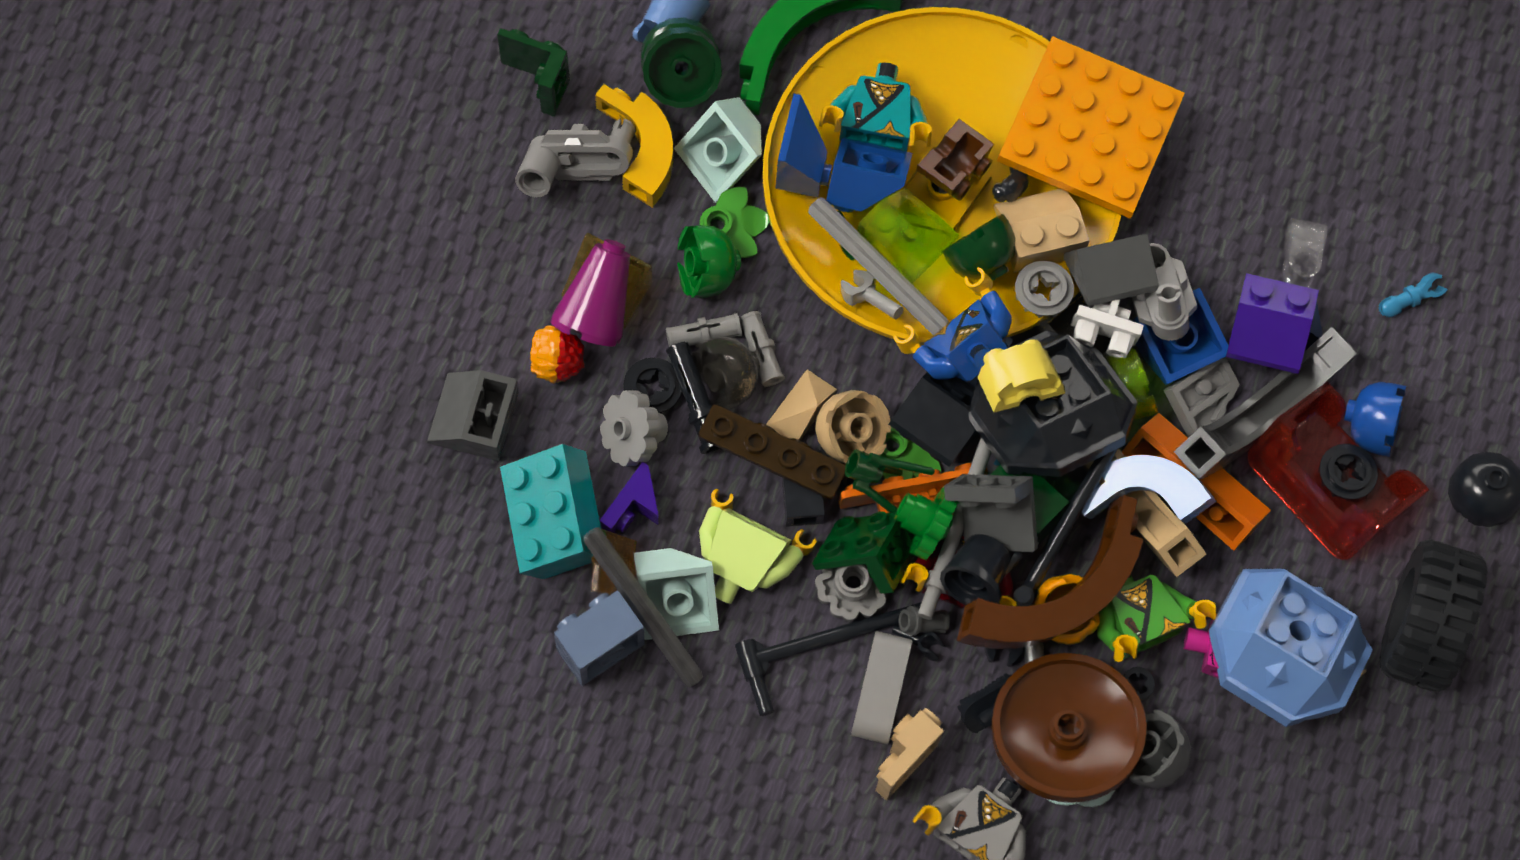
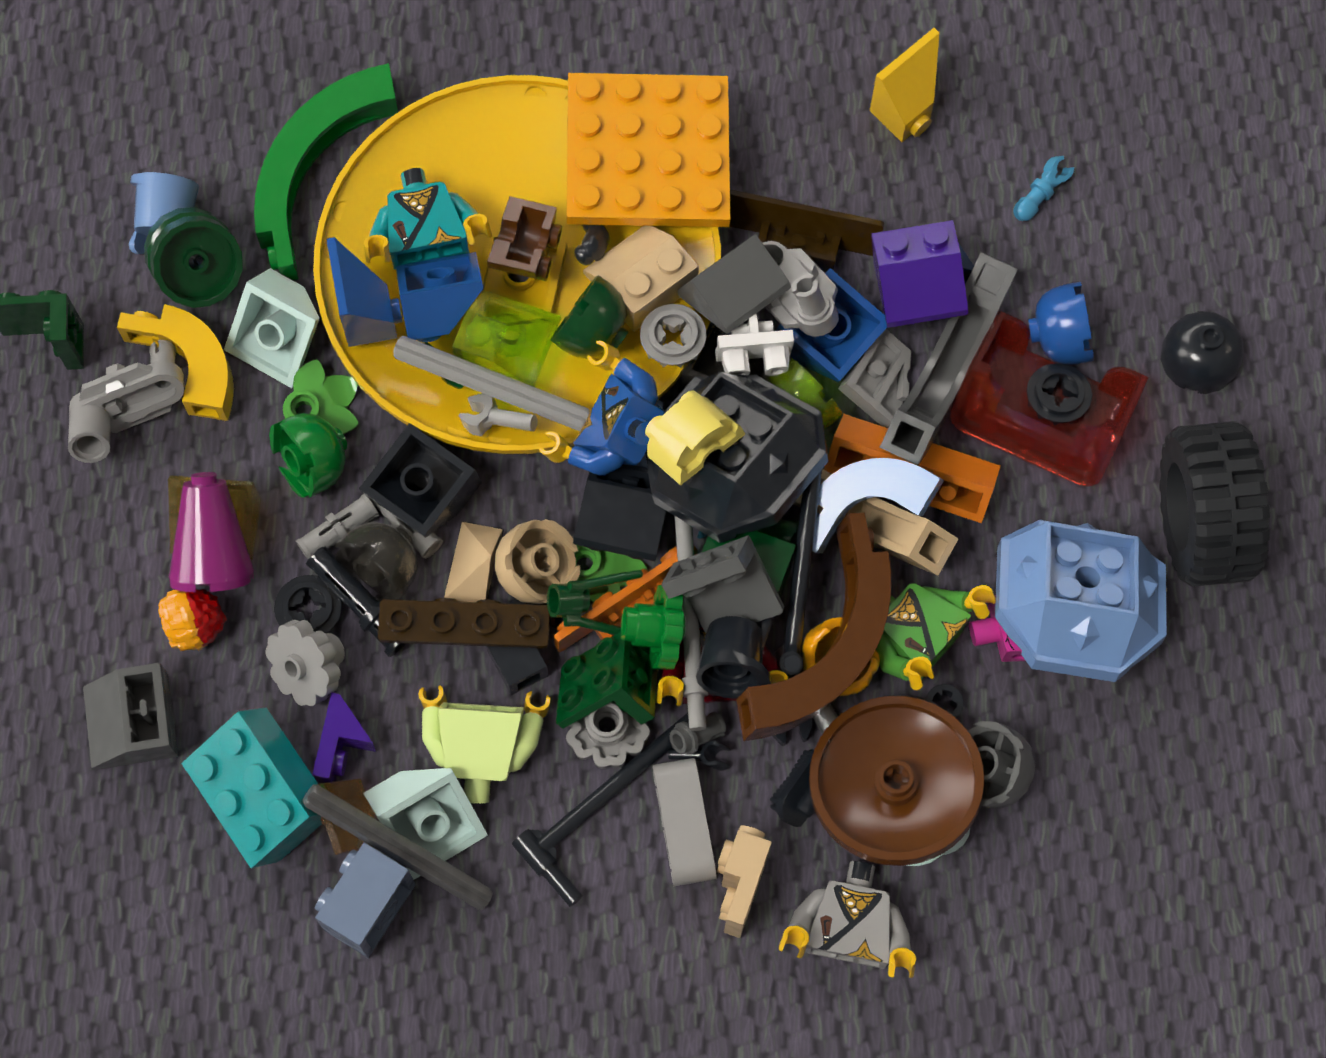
camera: 20 degrees left, 0 degrees up
(787, 323) = (421, 482): none -> black slope
(1188, 241) = (802, 226): none -> dark brown bracket
(1303, 248) = (915, 188): clear piece -> none
(1332, 165) = (906, 89): none -> yellow slope

